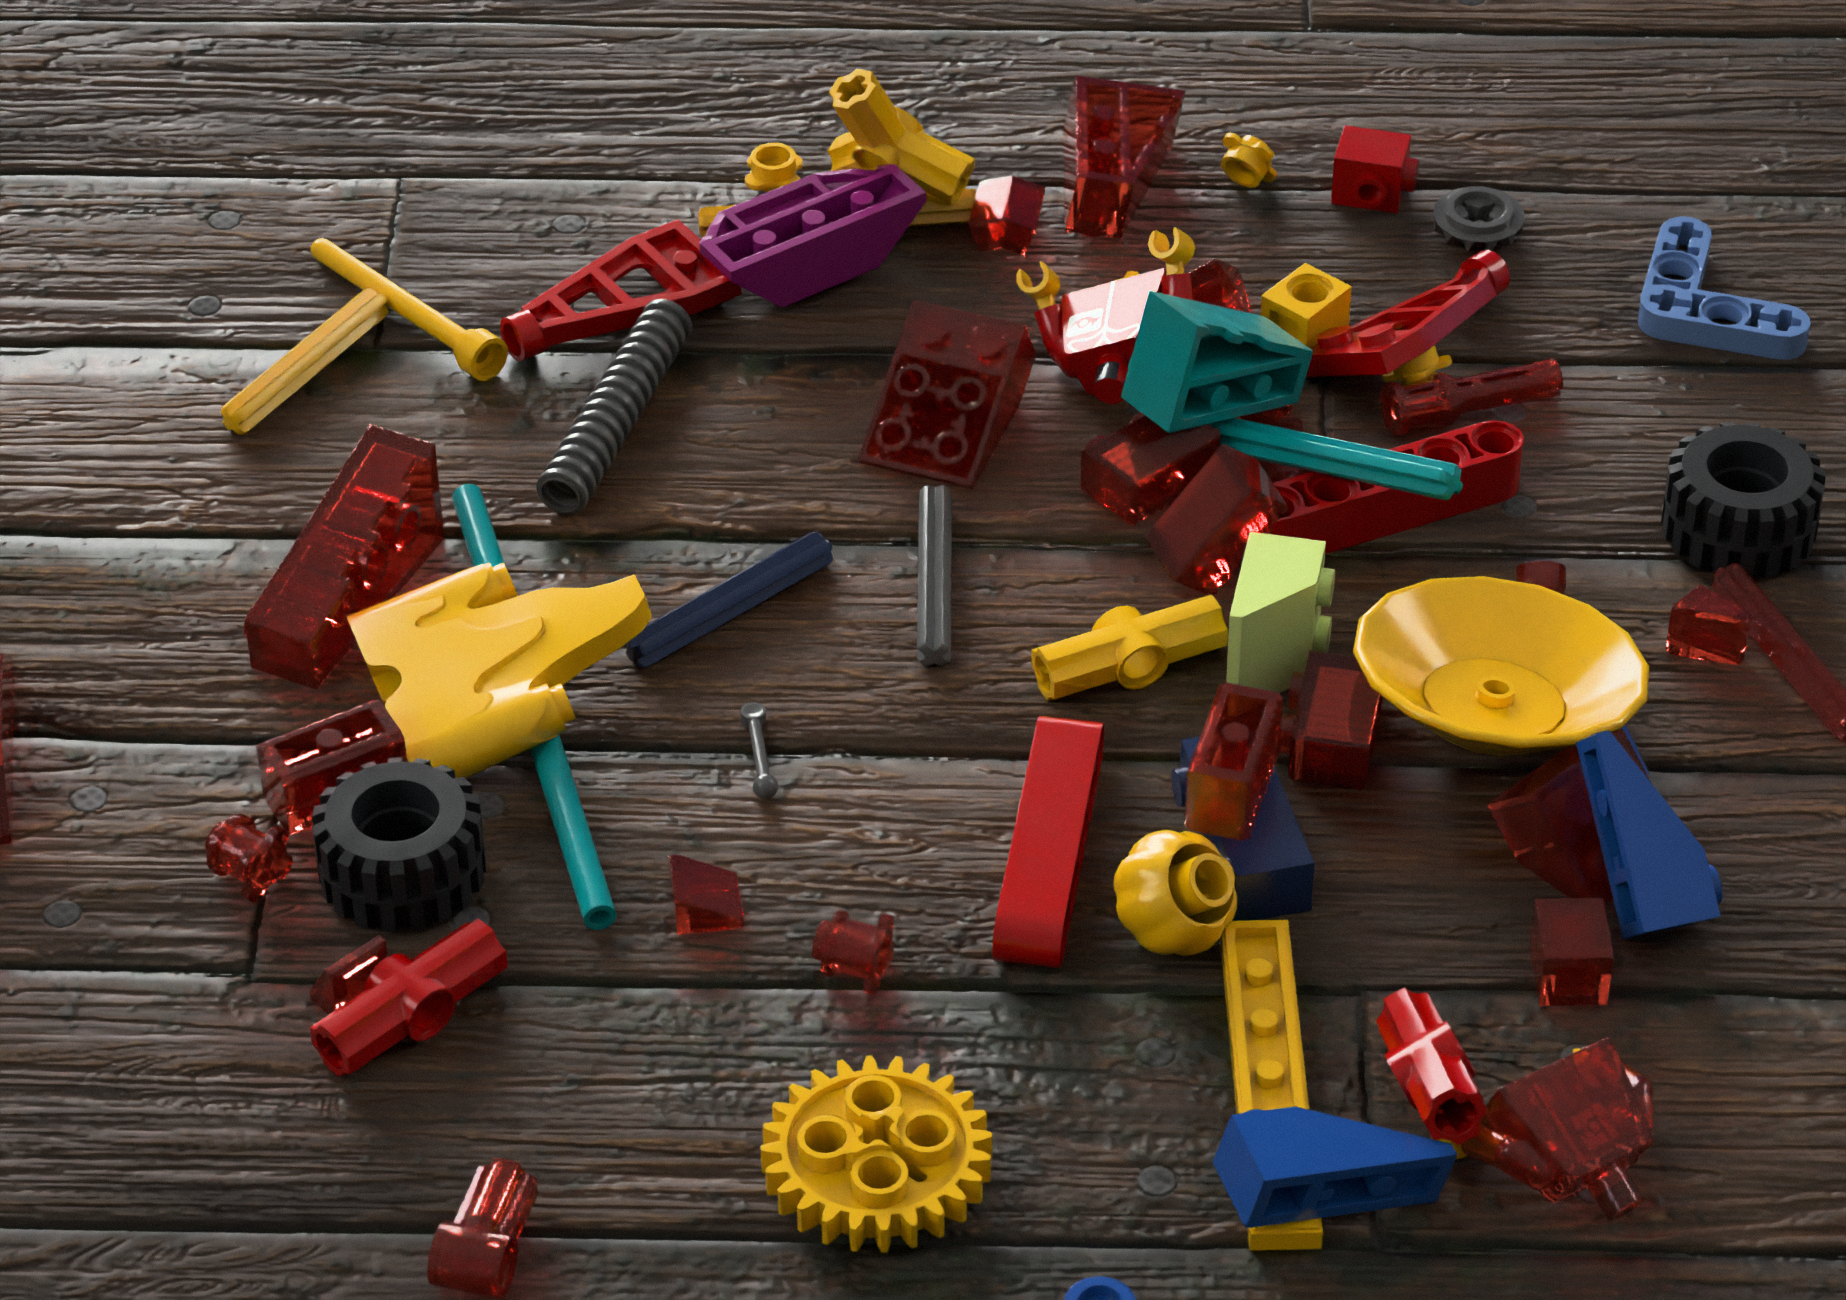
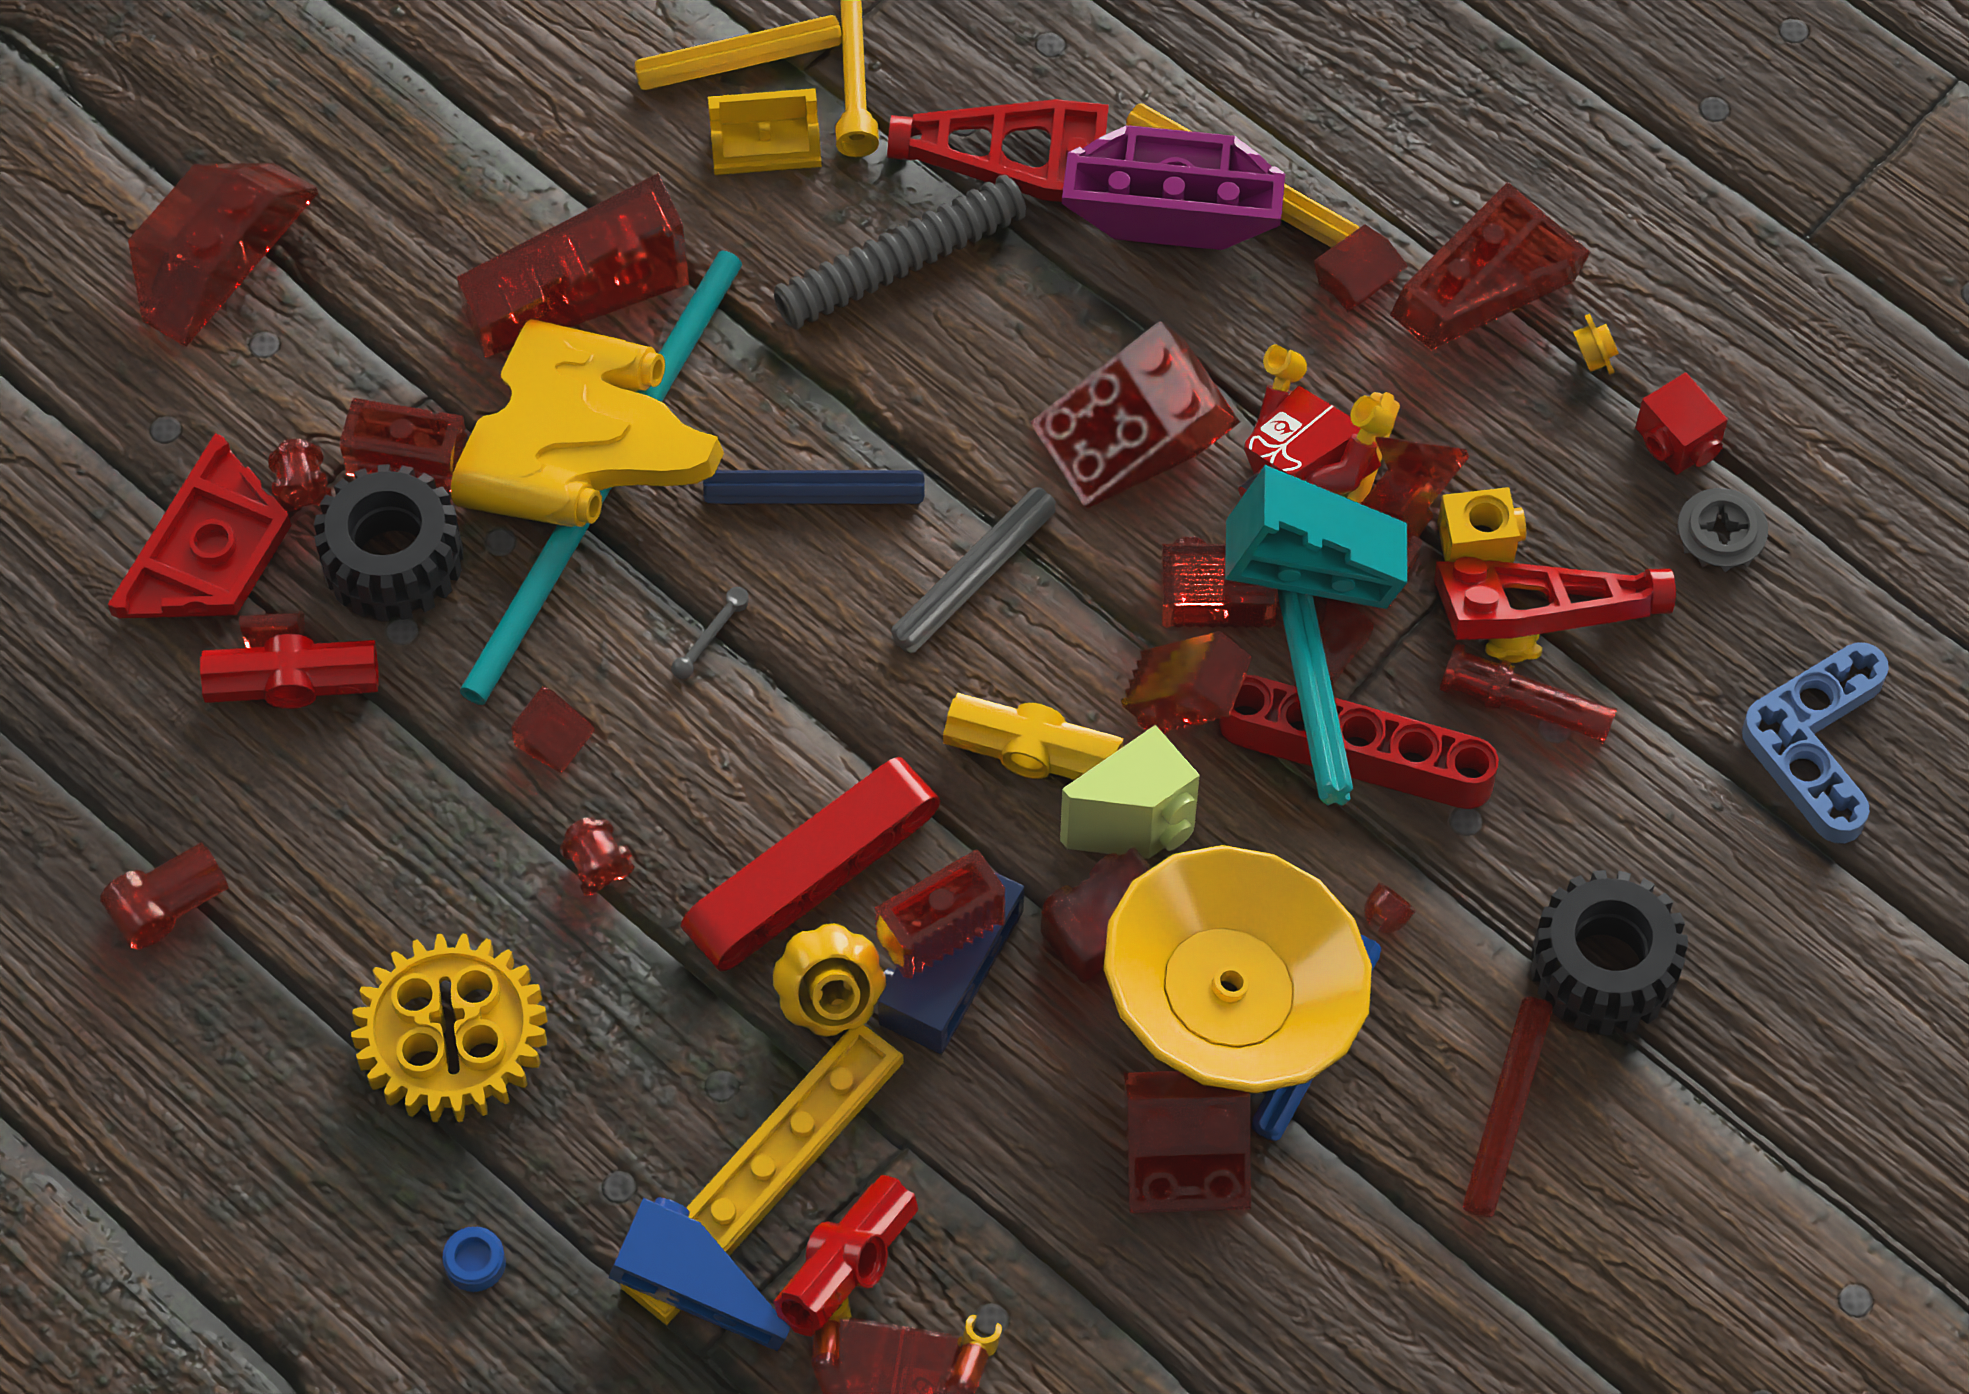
camera: 40 degrees right, 20 degrees up
(214, 958) = (206, 544): none -> red wing
(399, 387) = (764, 131): none -> yellow hinge
(772, 167) = (1237, 87): yellow plate -> none
(890, 135) = (1305, 154): yellow piece -> none
(1571, 951) = (1058, 1235): clear red brick -> none
(1649, 854) = (1174, 1207): blue slope -> none
(1708, 628) = (1460, 1041): clear red slope -> none

